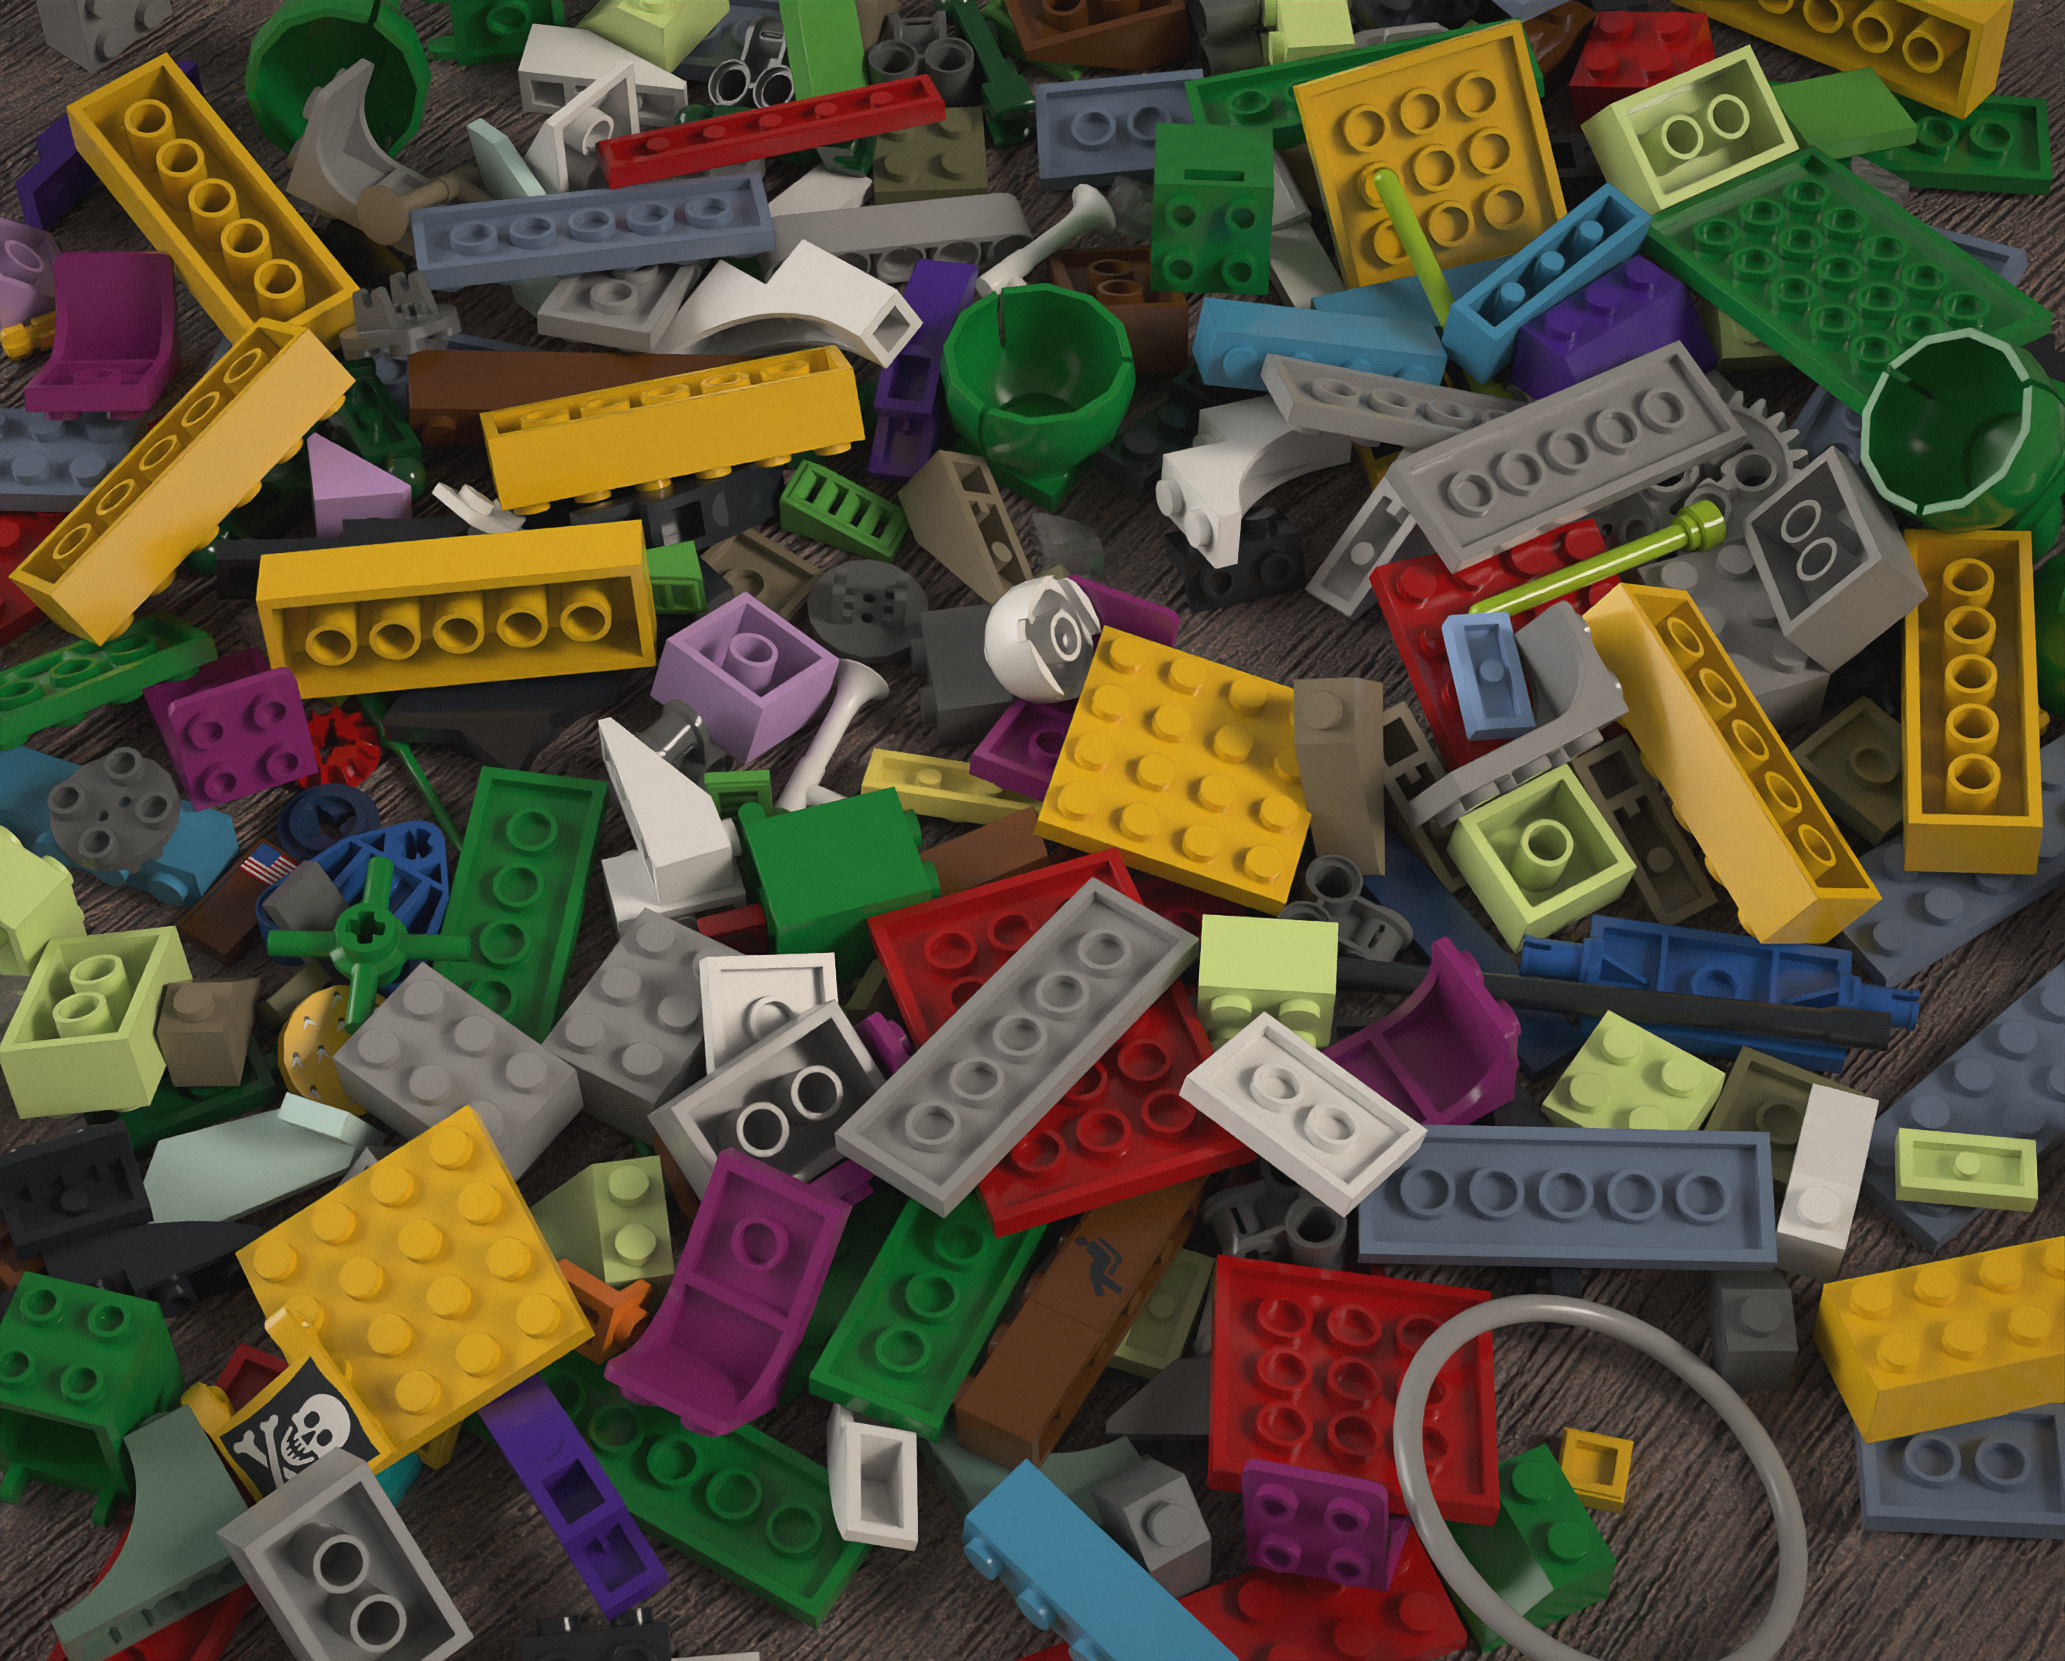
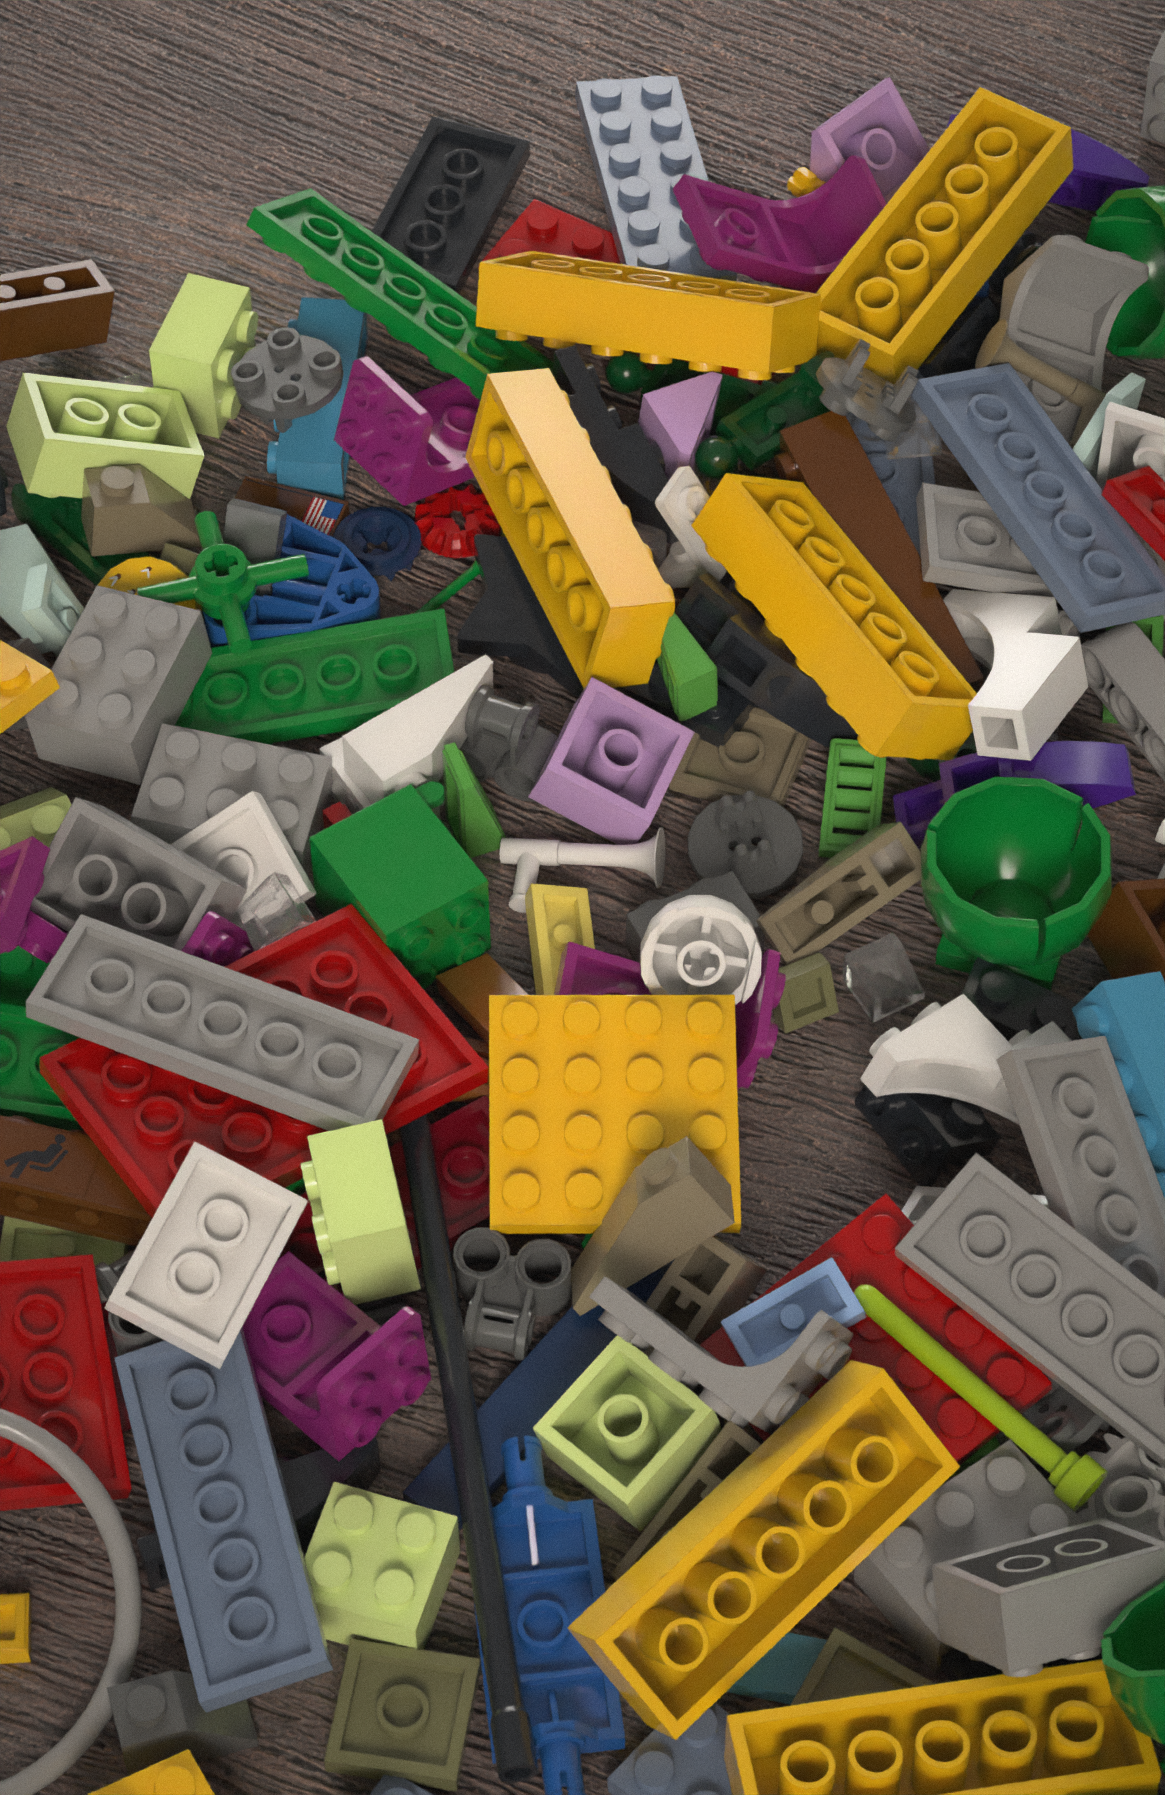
camera: 75 degrees right, 0 degrees up
(858, 985) = (274, 911): none -> clear slope
(1824, 1182) = (326, 1742): white slope -> none

